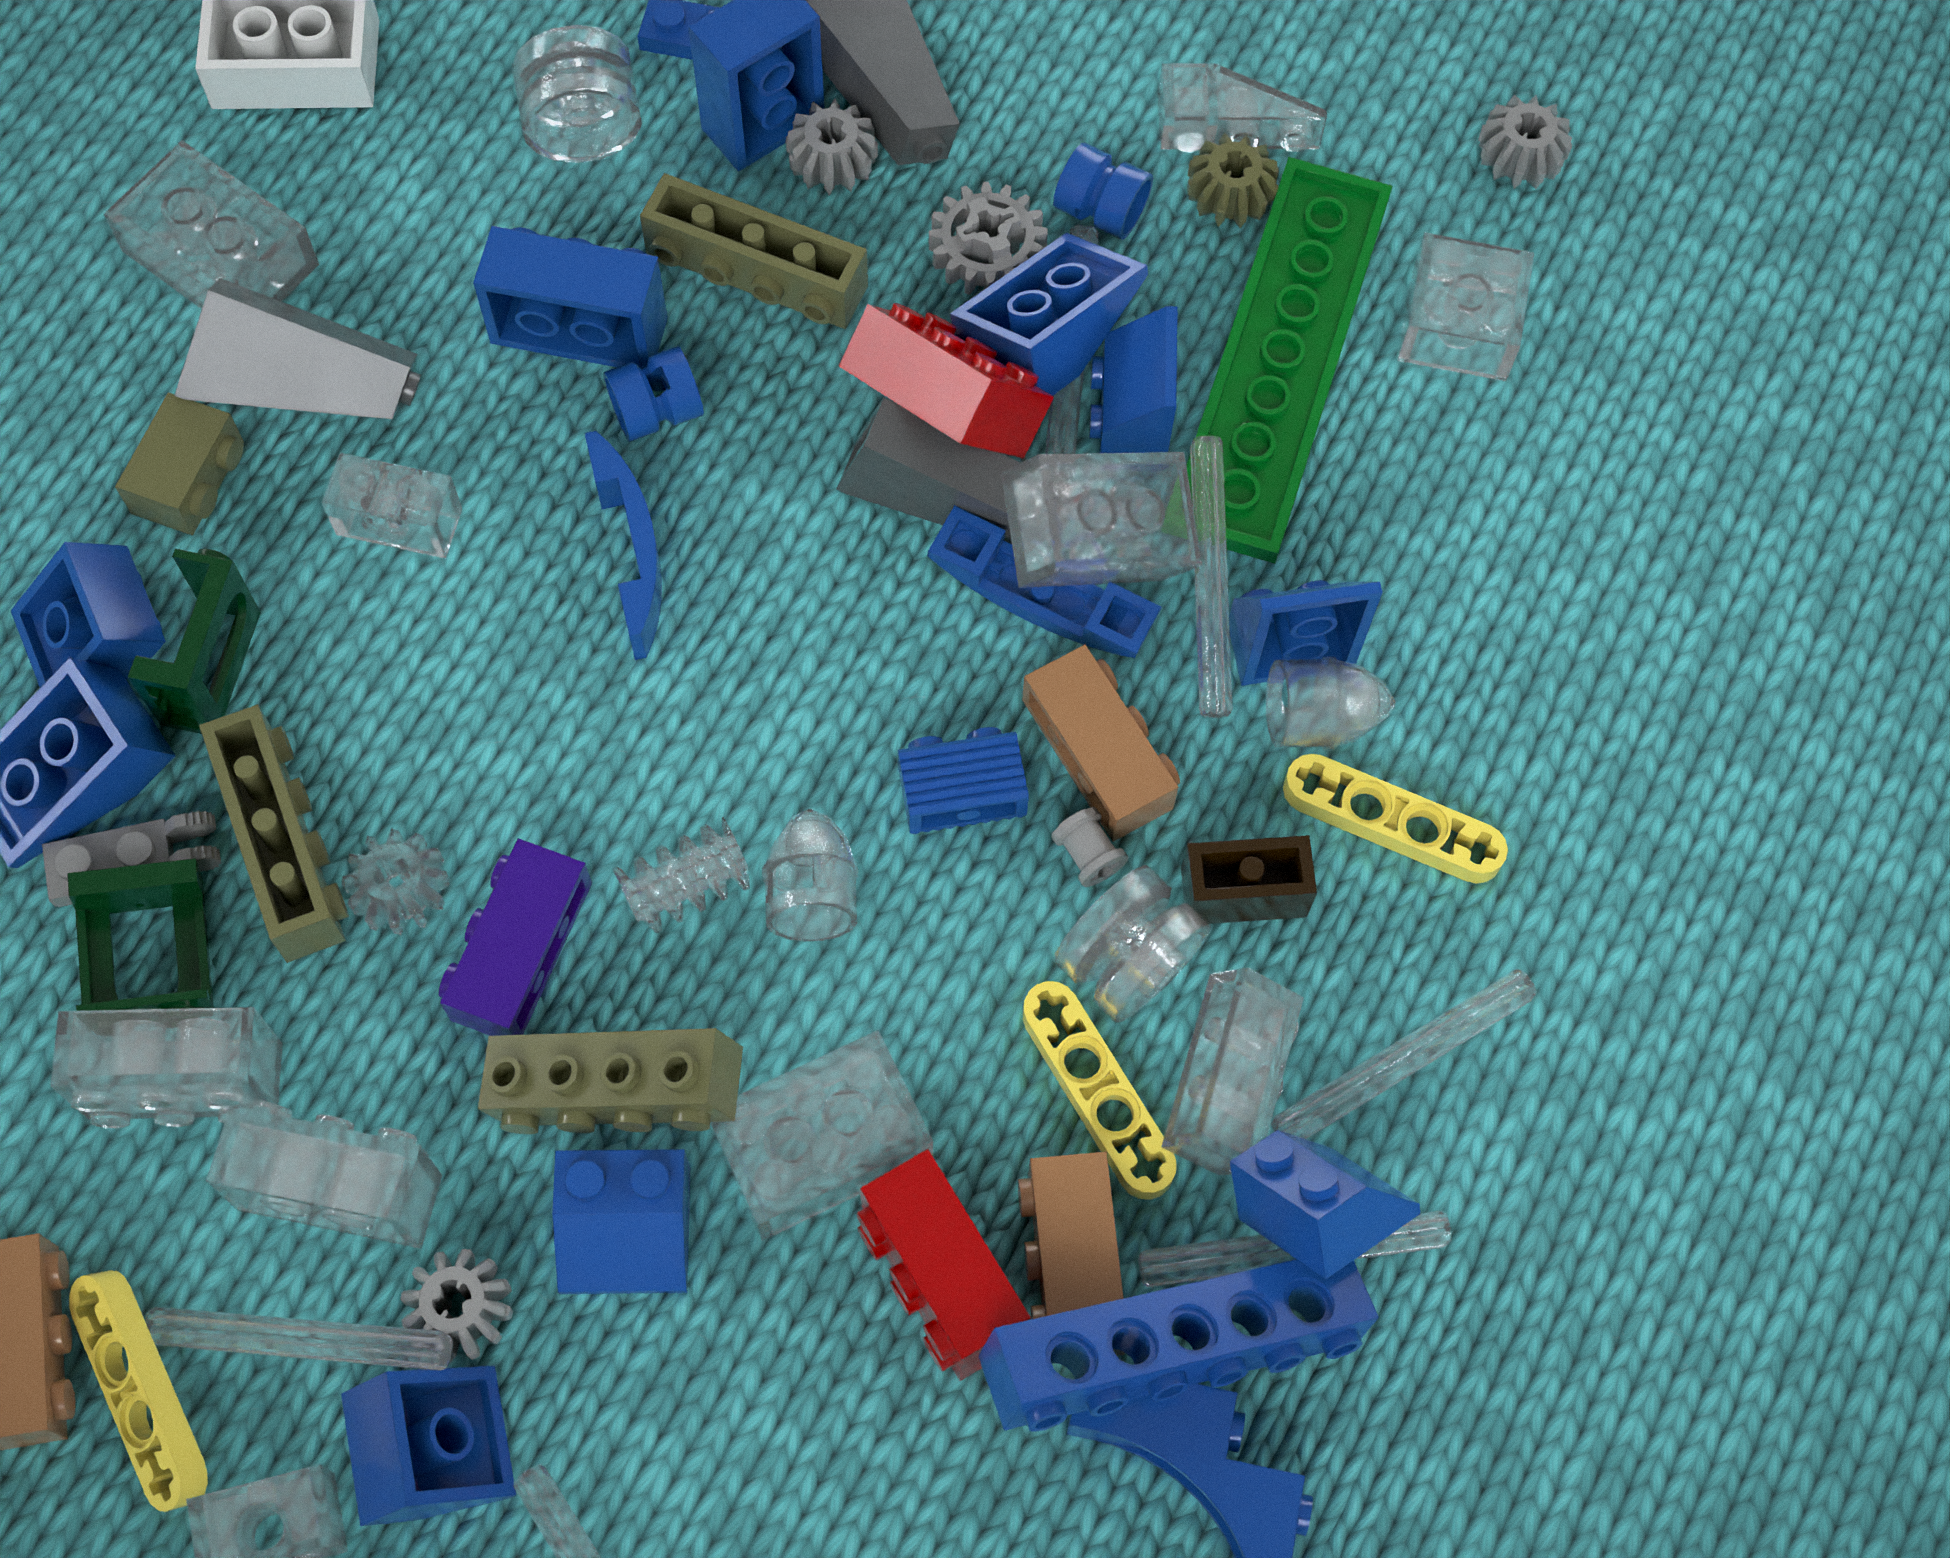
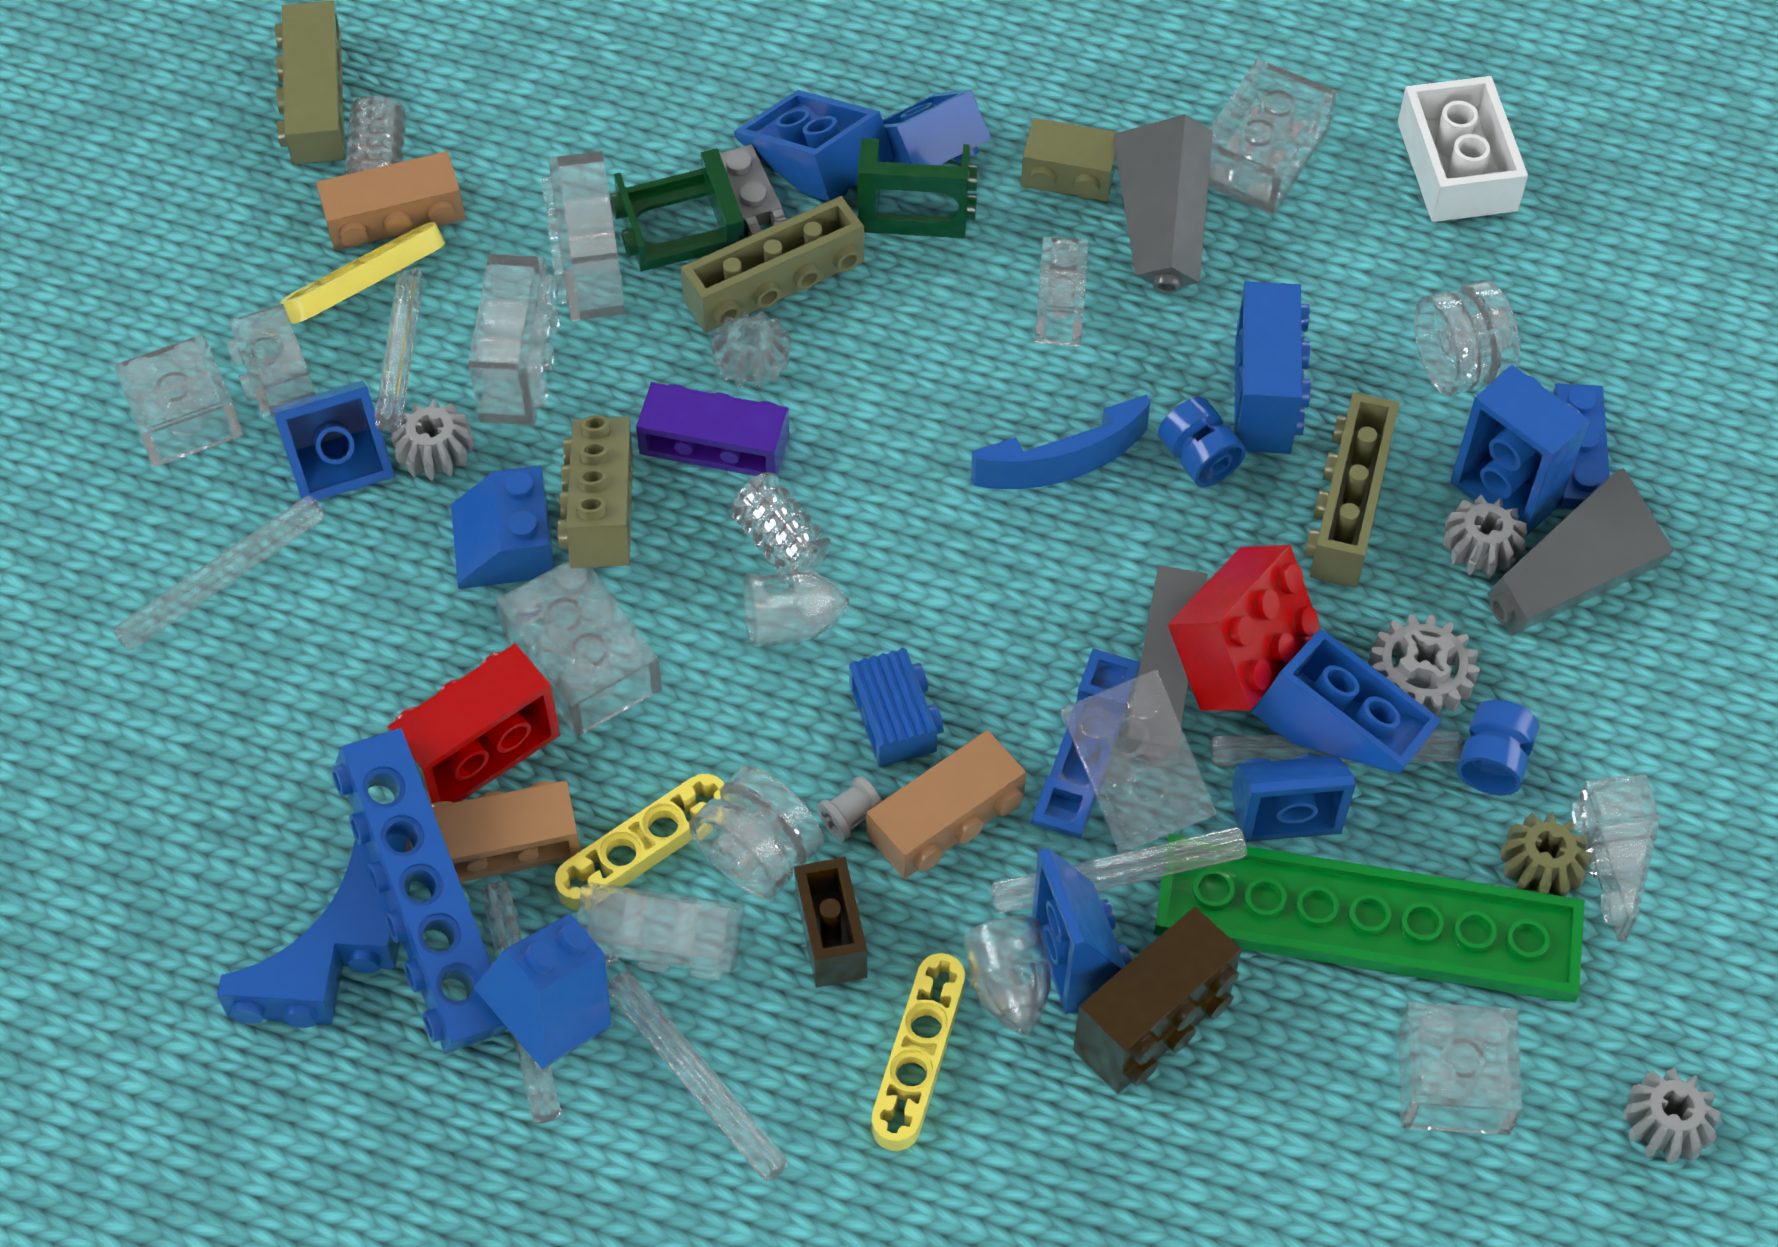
camera: 85 degrees right, 10 degrees down
(1365, 531) = (1157, 1001): none -> dark brown brick

